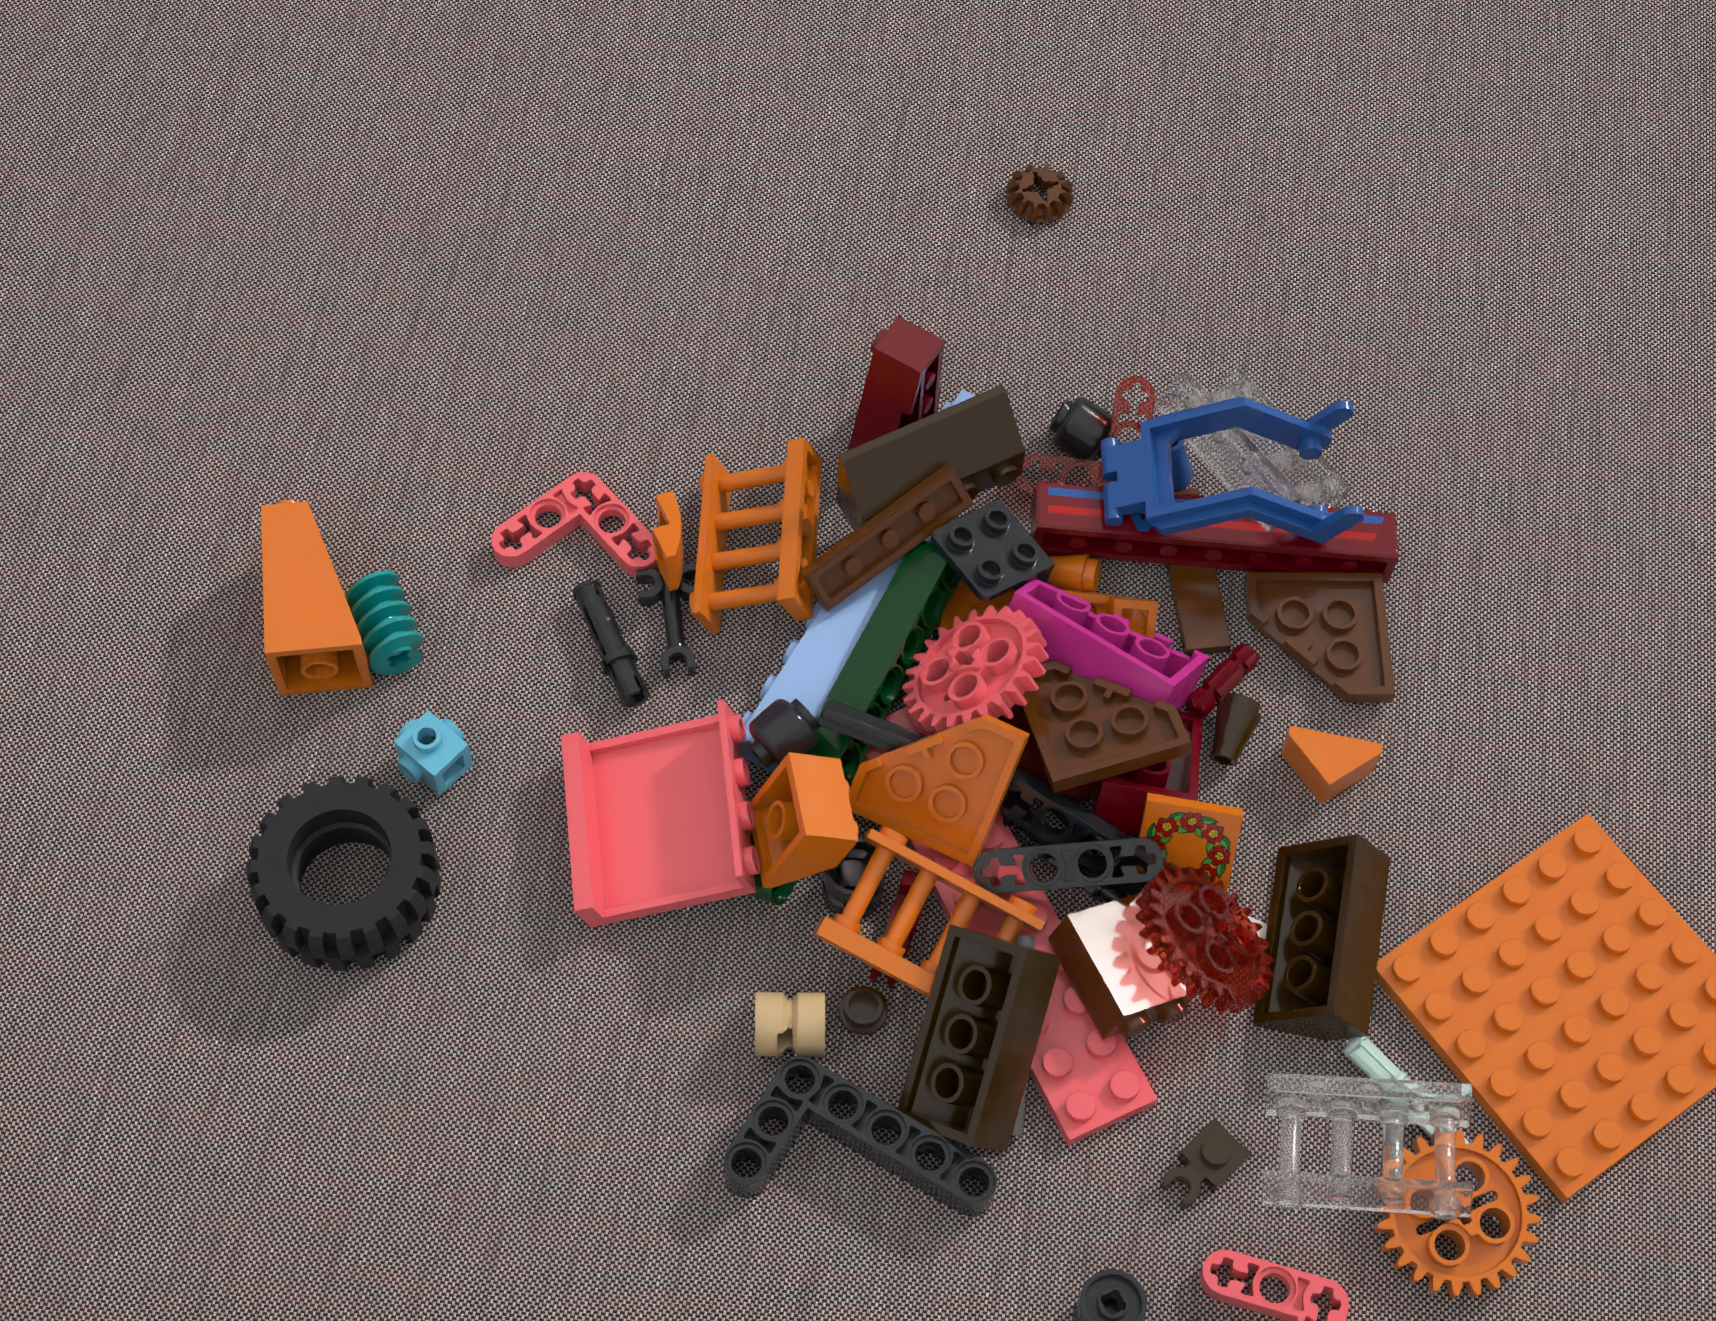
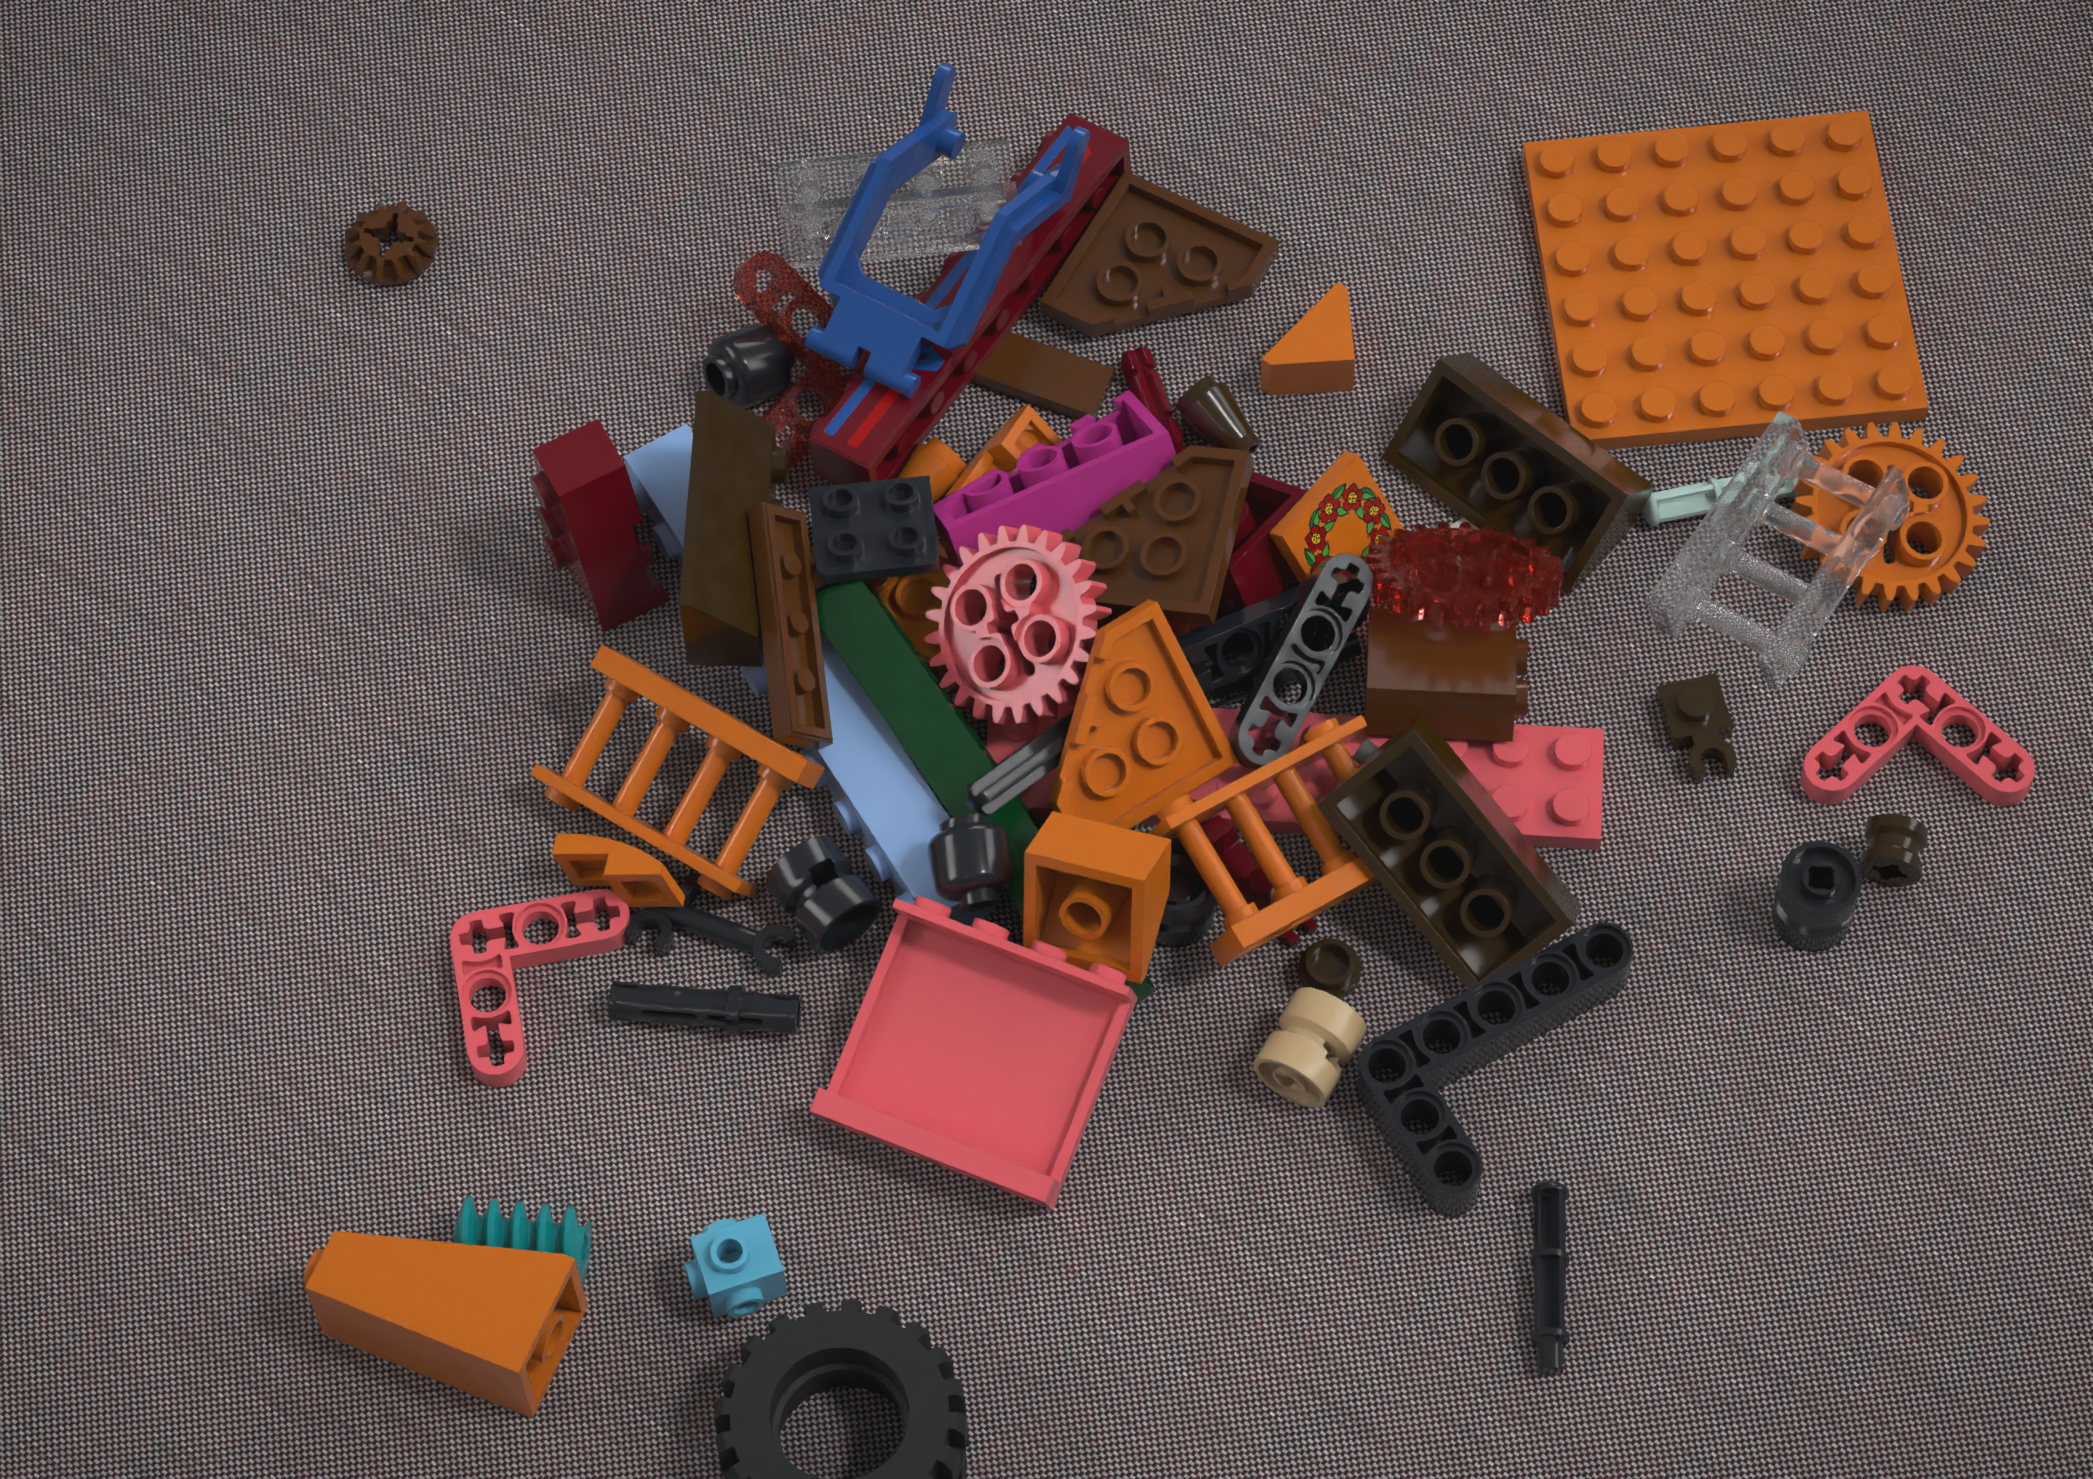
camera: 55 degrees left, 0 degrees up
(713, 1273) = (1549, 1275): none -> black piece
(728, 664) = (828, 901): none -> black wheel

